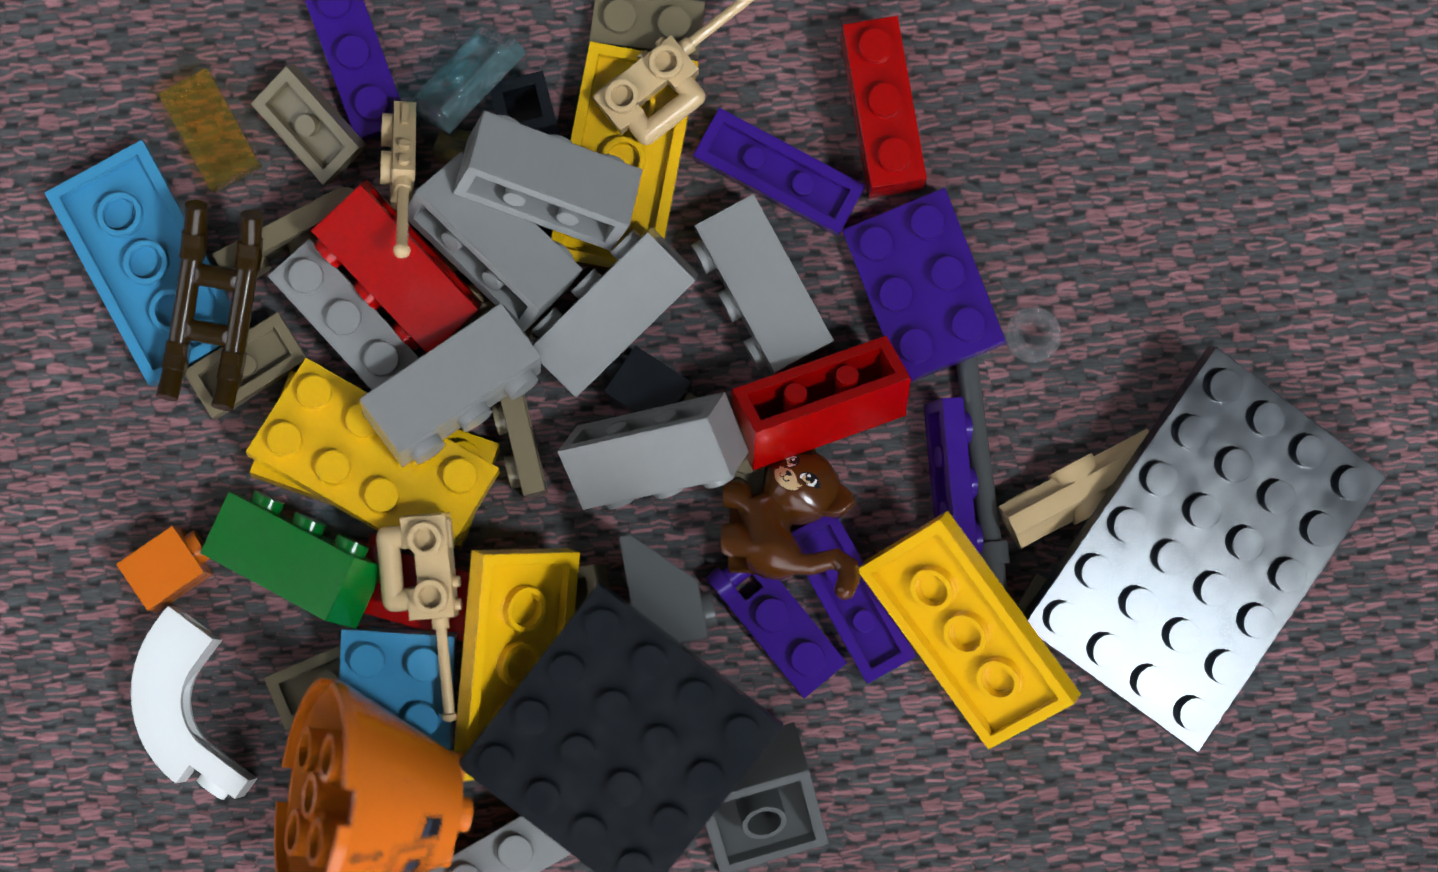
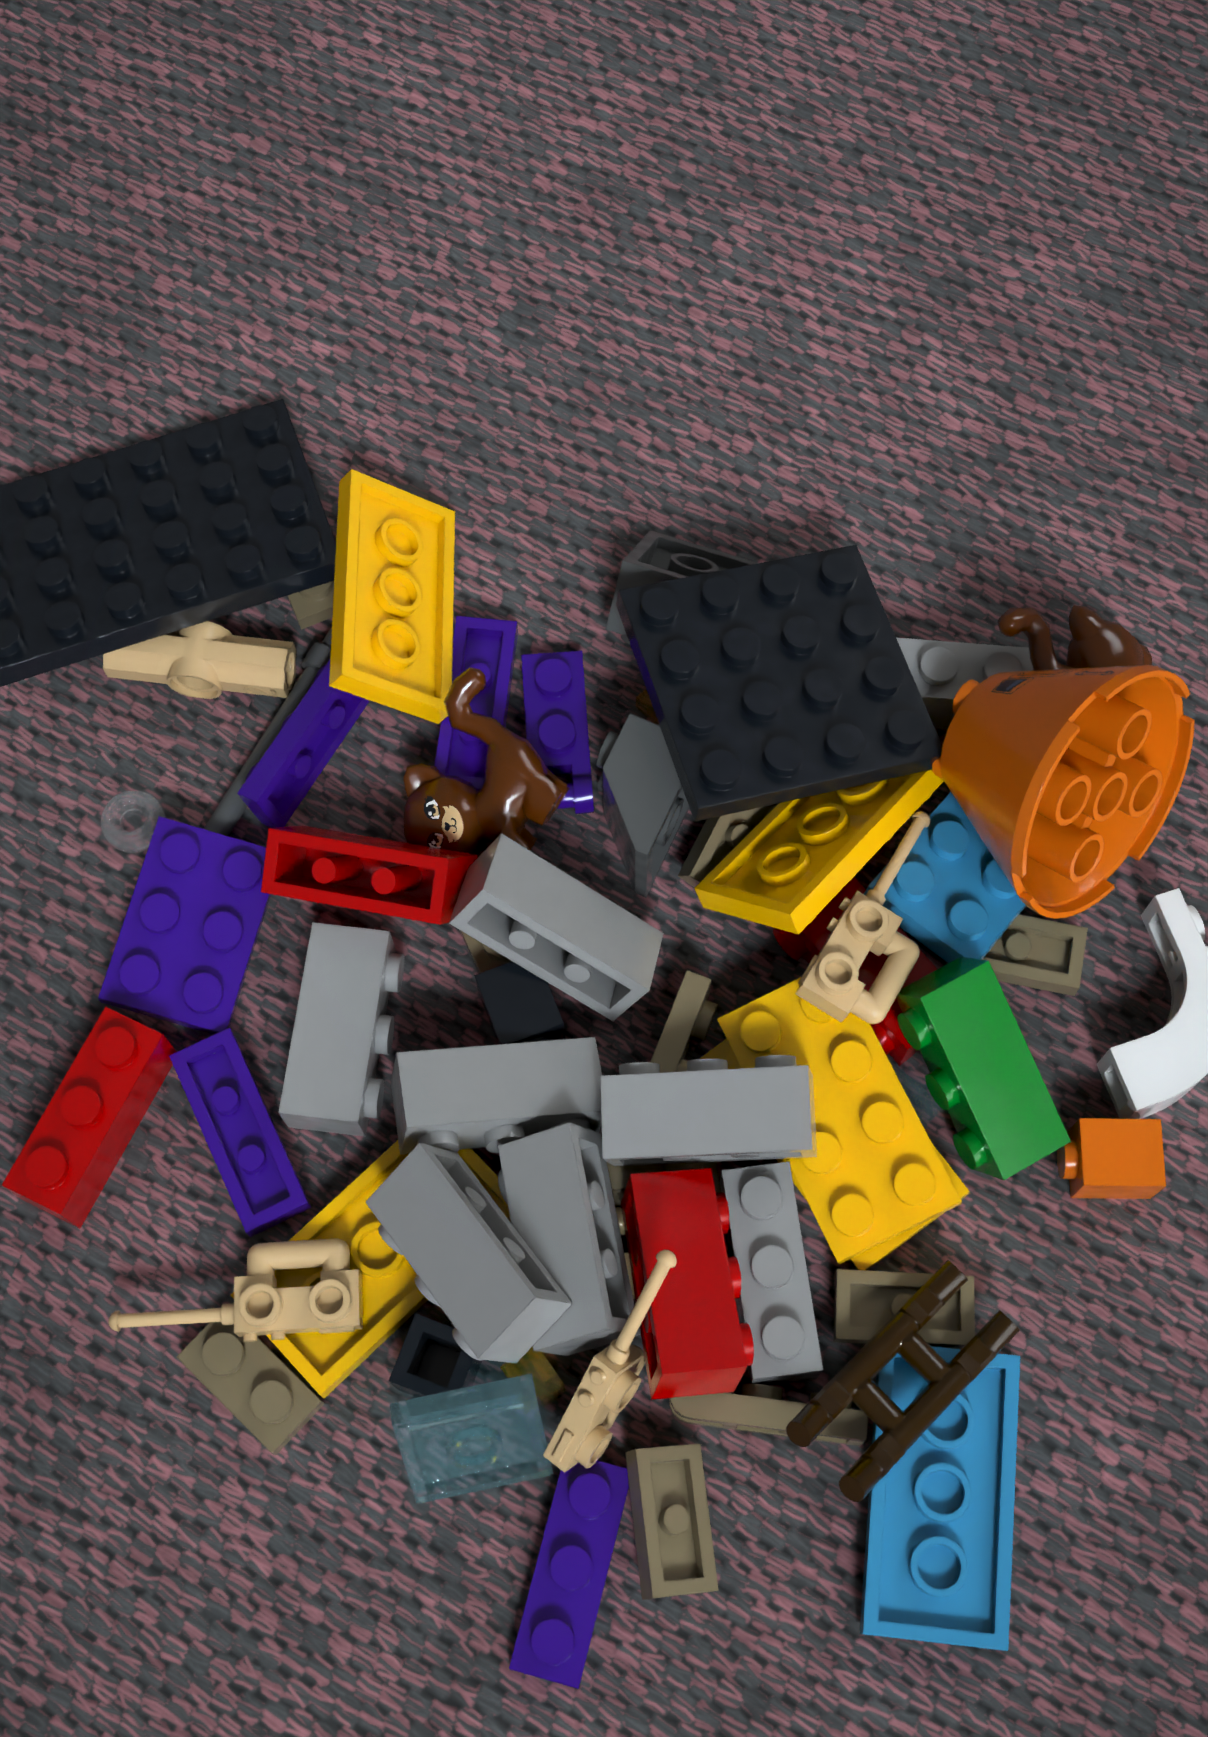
camera: 145 degrees left, 15 degrees down
(210, 130) = (781, 1595): clear yellow plate -> none

